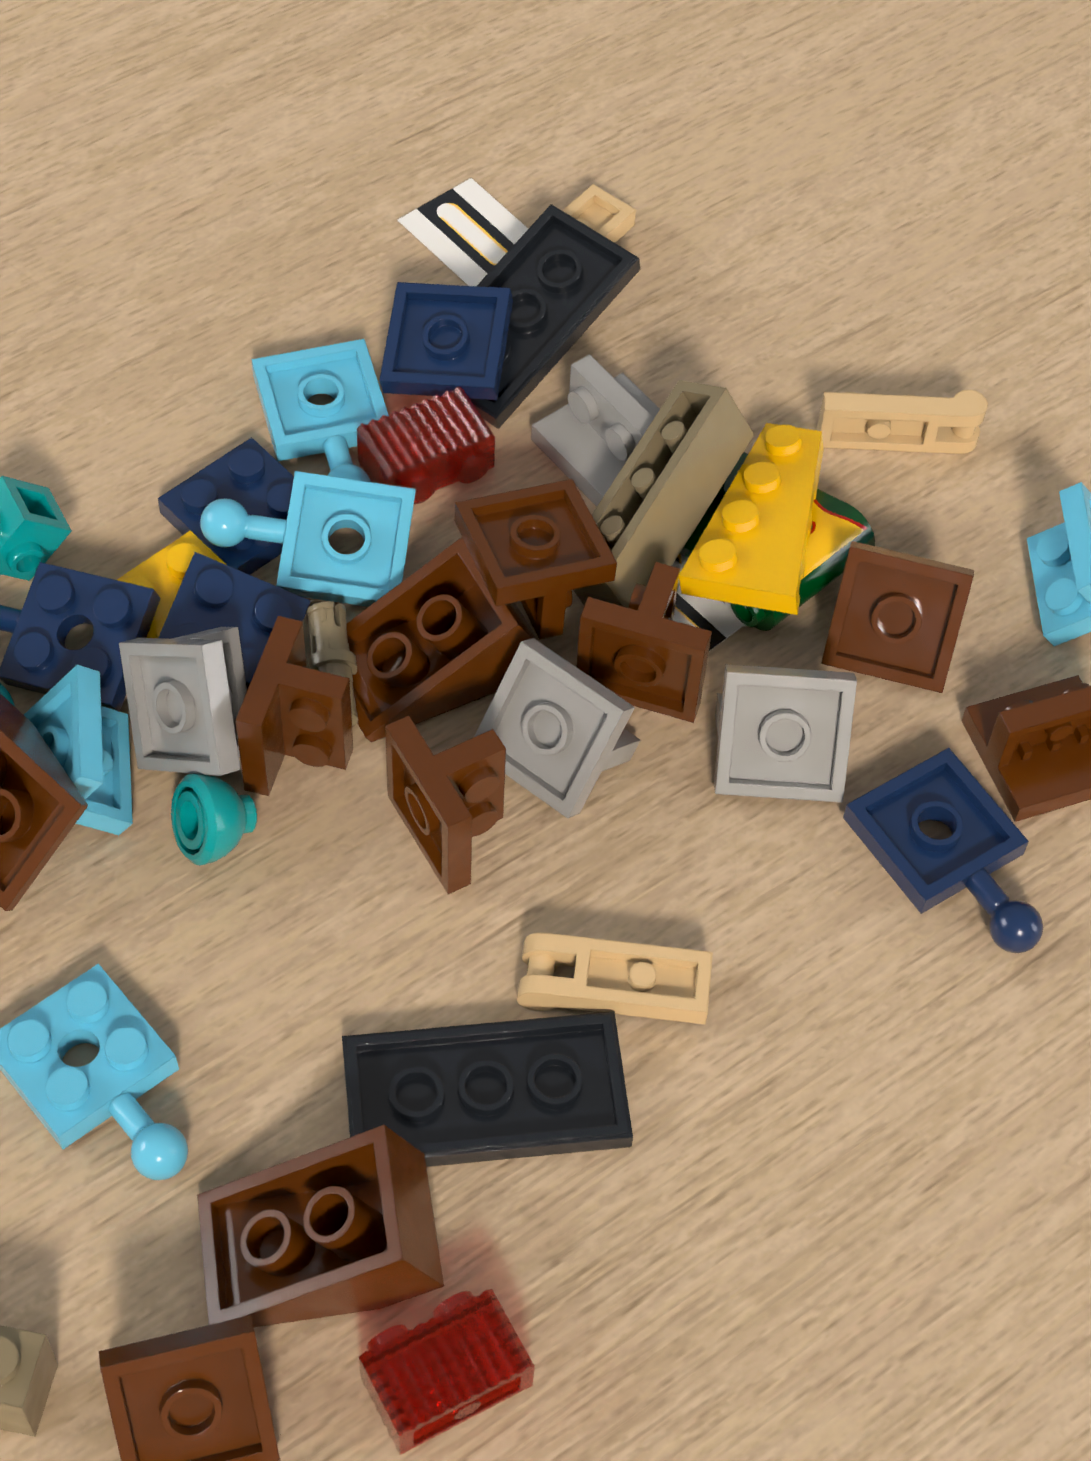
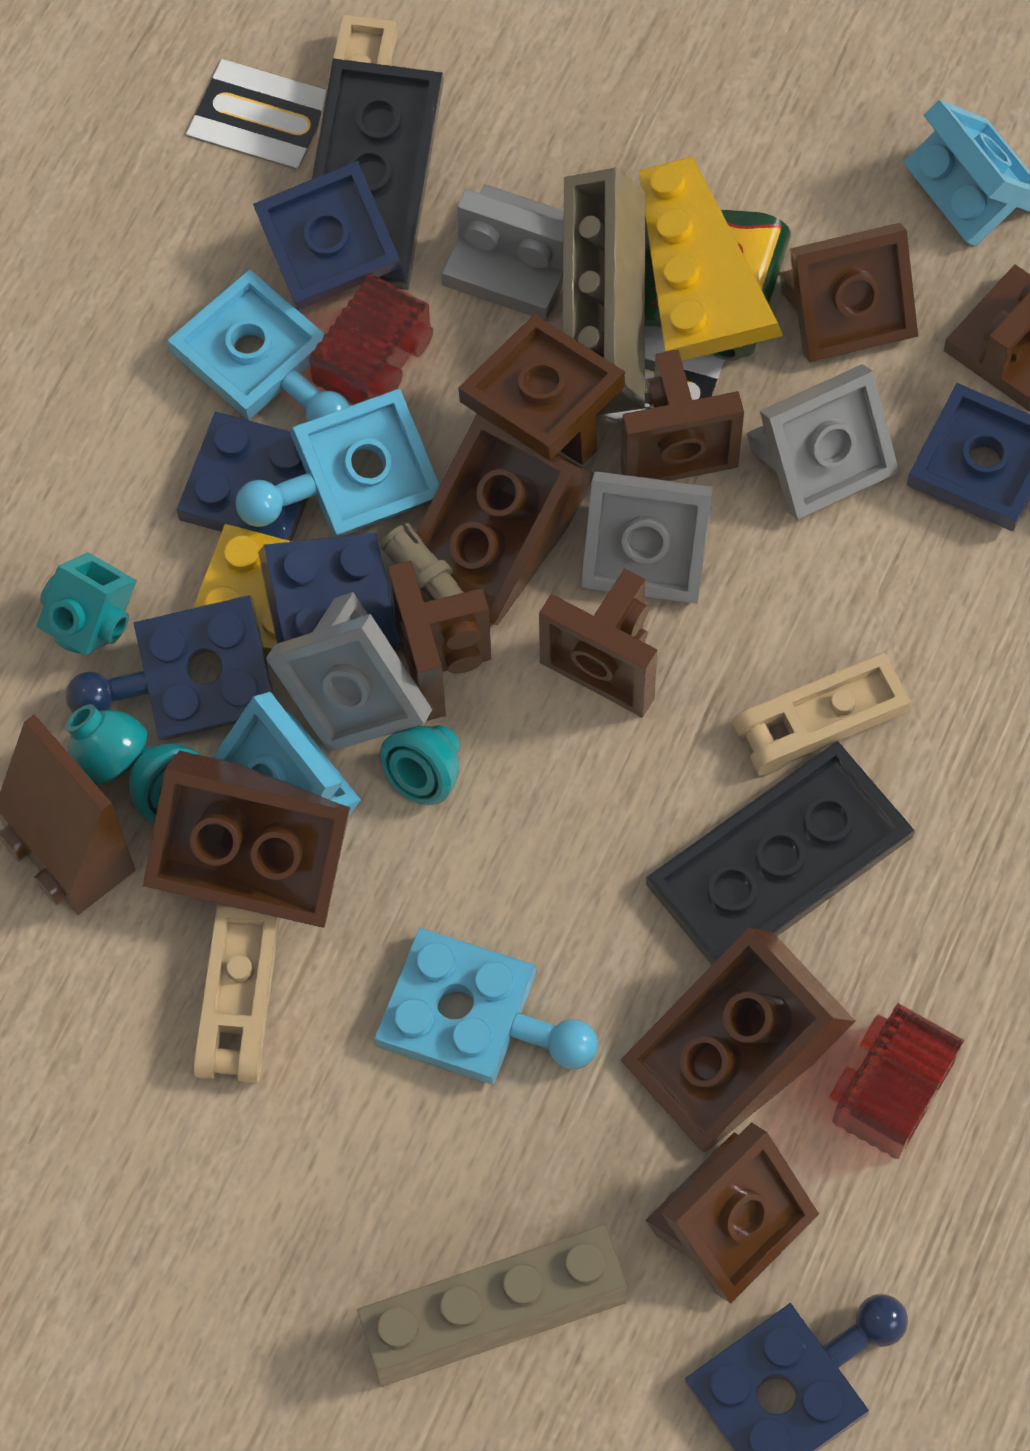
camera: 25 degrees left, 10 degrees up
(902, 422) = (742, 109): tan plate -> none

